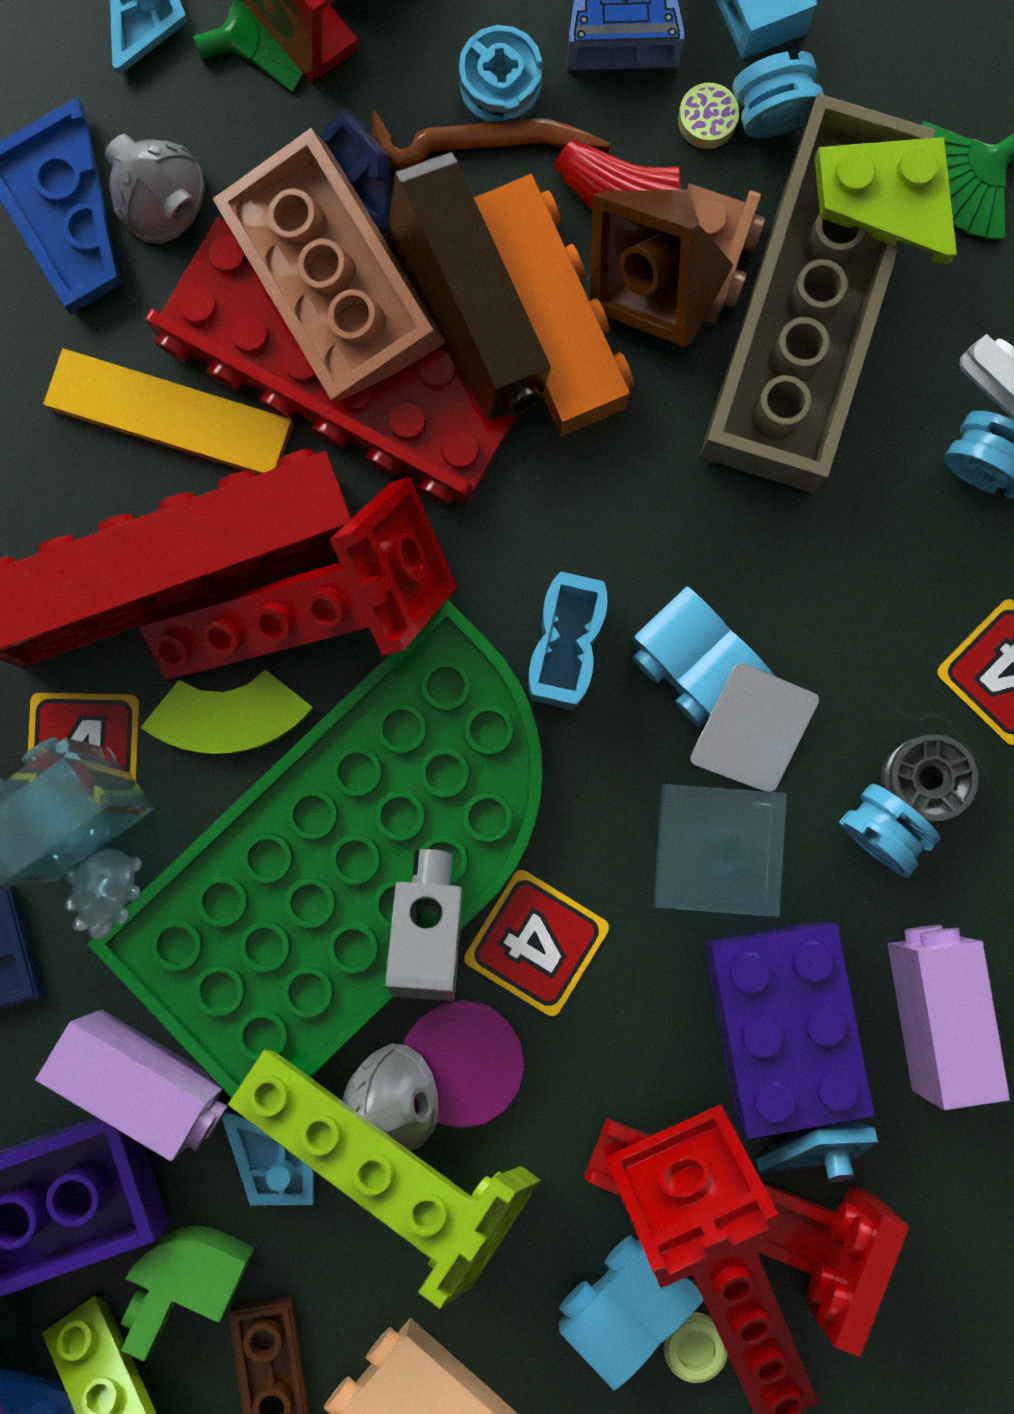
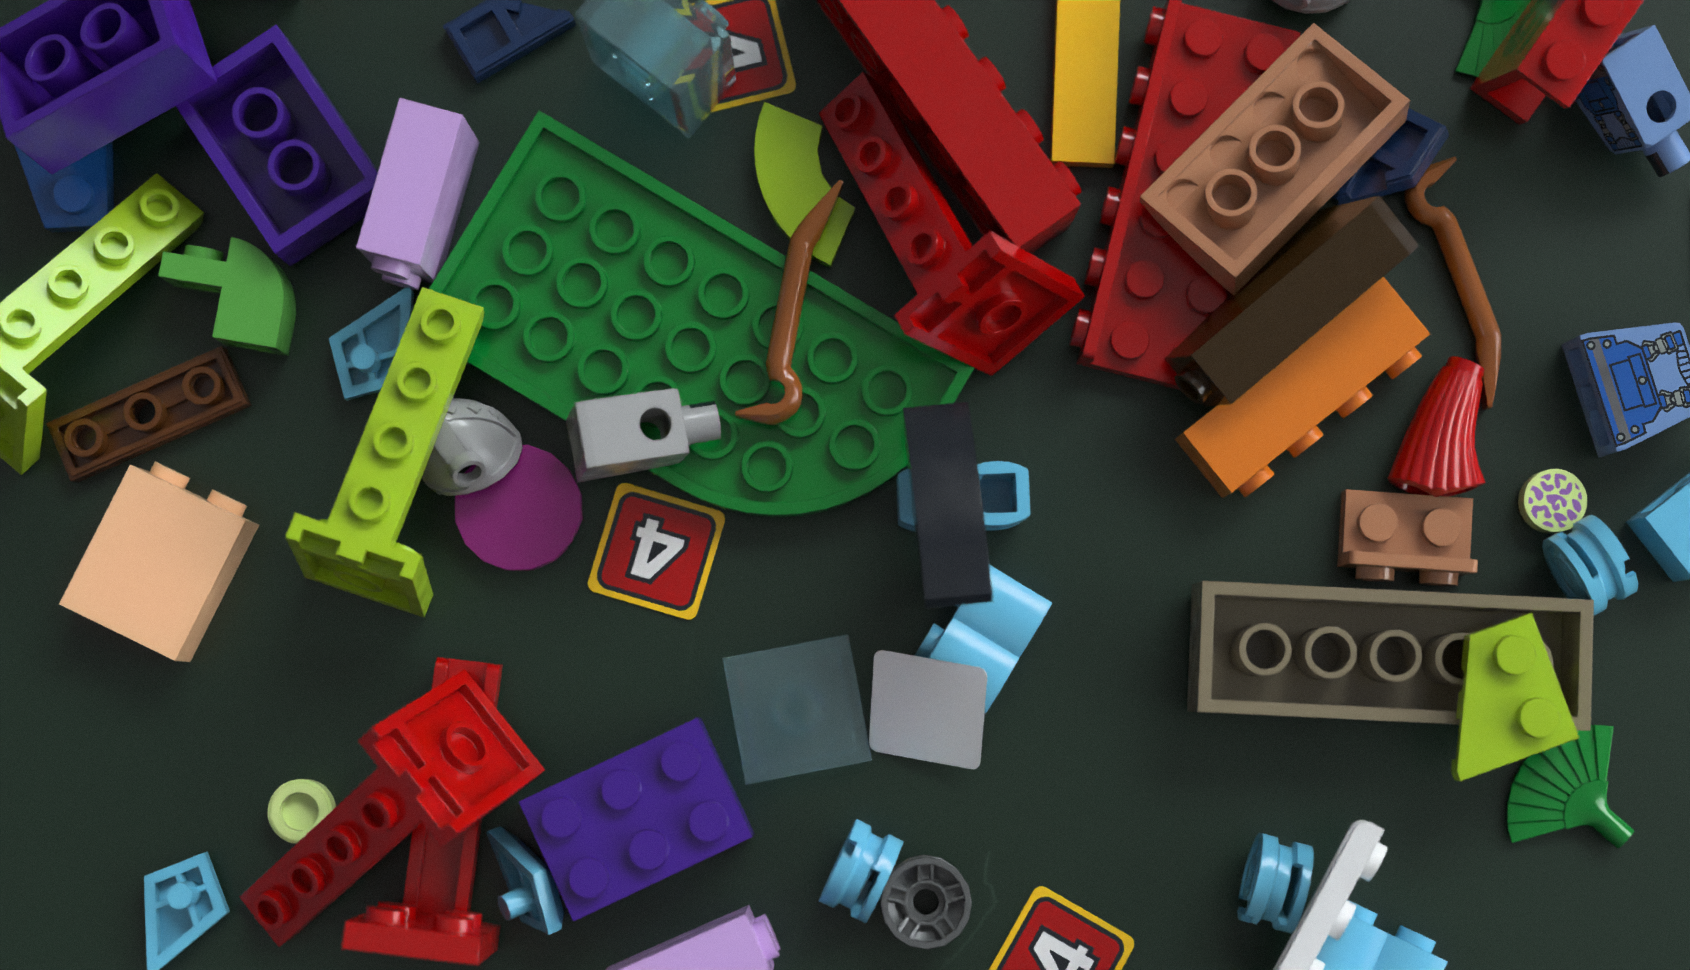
camera: 70 degrees right, 0 degrees up
(102, 890) = (594, 110): clear piece -> none
(349, 757) = (789, 312): none -> dark orange piece
(500, 74) = (1531, 276): medium azure wheel -> none
(580, 653) = (947, 505): none -> black slope
(625, 1313) = (316, 730): medium azure brick -> none
(654, 262) = (1368, 480): reddish brown slope -> none

